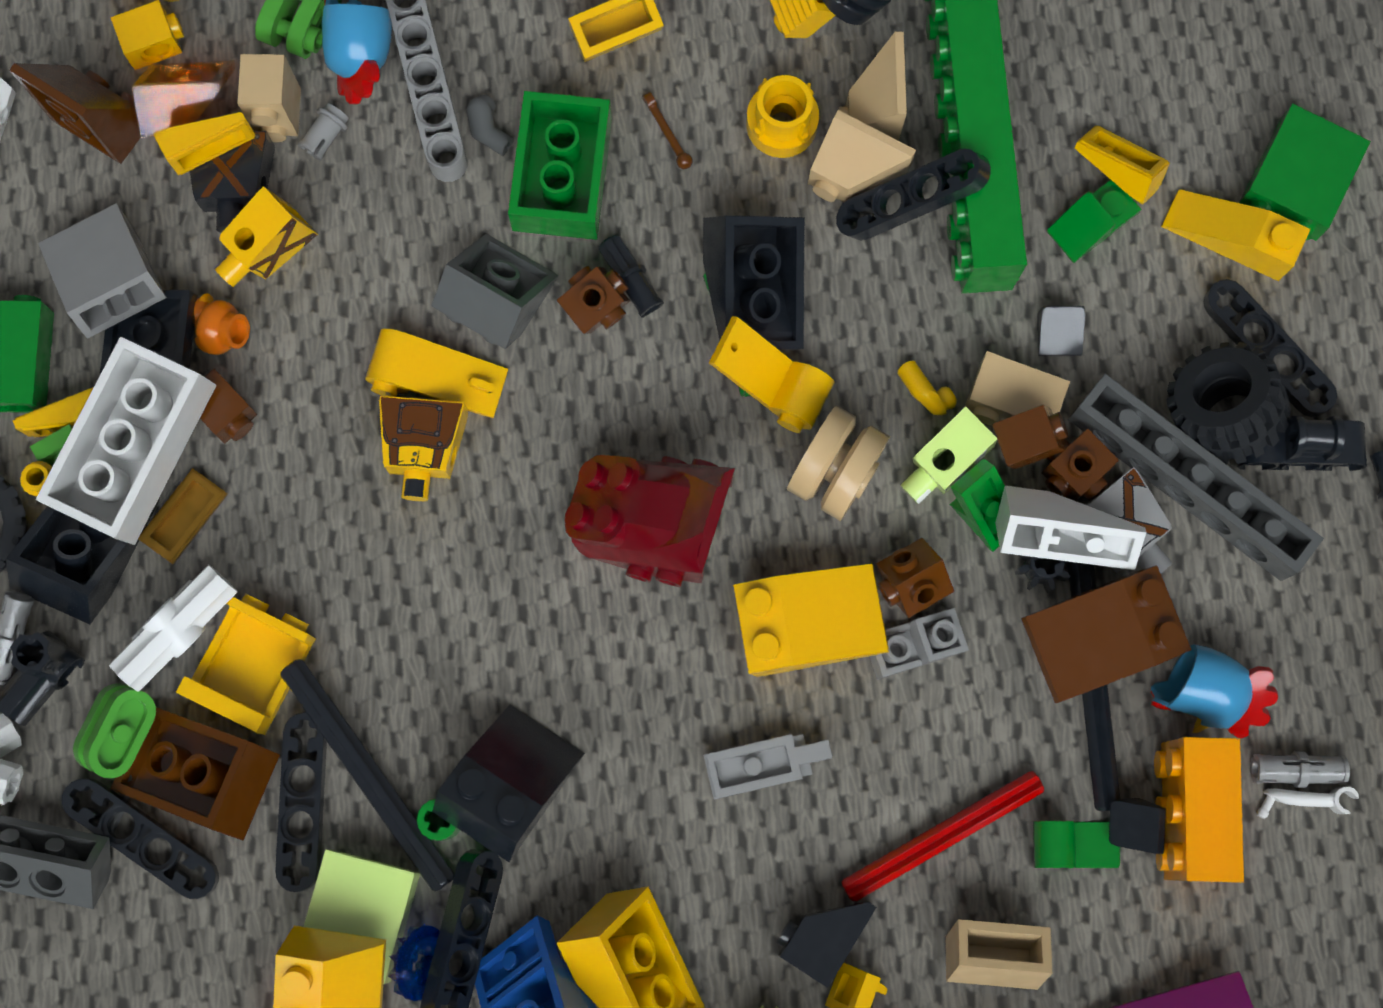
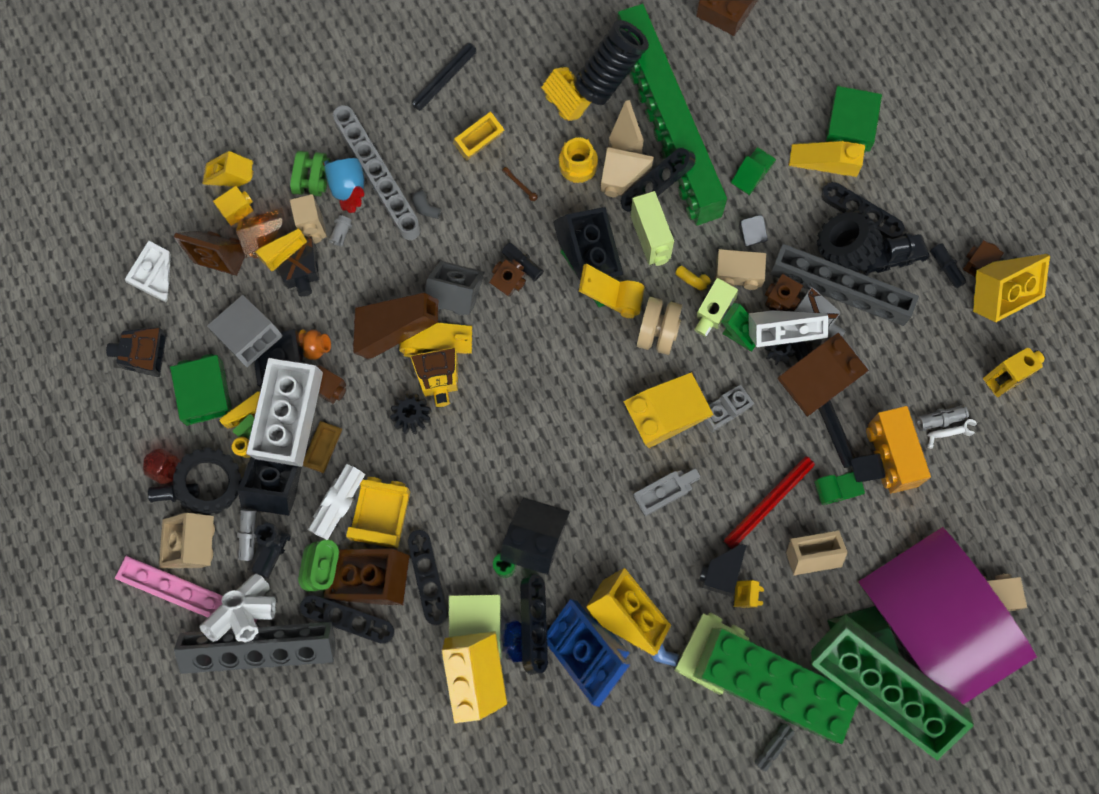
camera: 10 degrees left, 5 degrees down
(262, 237) = (325, 292): yellow torso -> none
(354, 515) = (406, 406): none -> black gear
(363, 328) = (392, 322): none -> reddish brown slope
(367, 774) = (459, 553): black axle -> none
(560, 165) = (470, 214): green brick -> none
(648, 515) = (569, 378): dark red slope -> none
(877, 280) = (652, 228): none -> yellowish green brick
(914, 578) = (715, 374): reddish brown brick -> none
(1031, 436) = (754, 284): reddish brown brick -> none
(1123, 162) = (762, 138): yellow slope -> none
(1217, 691) = (888, 388): dark azure piece -> none

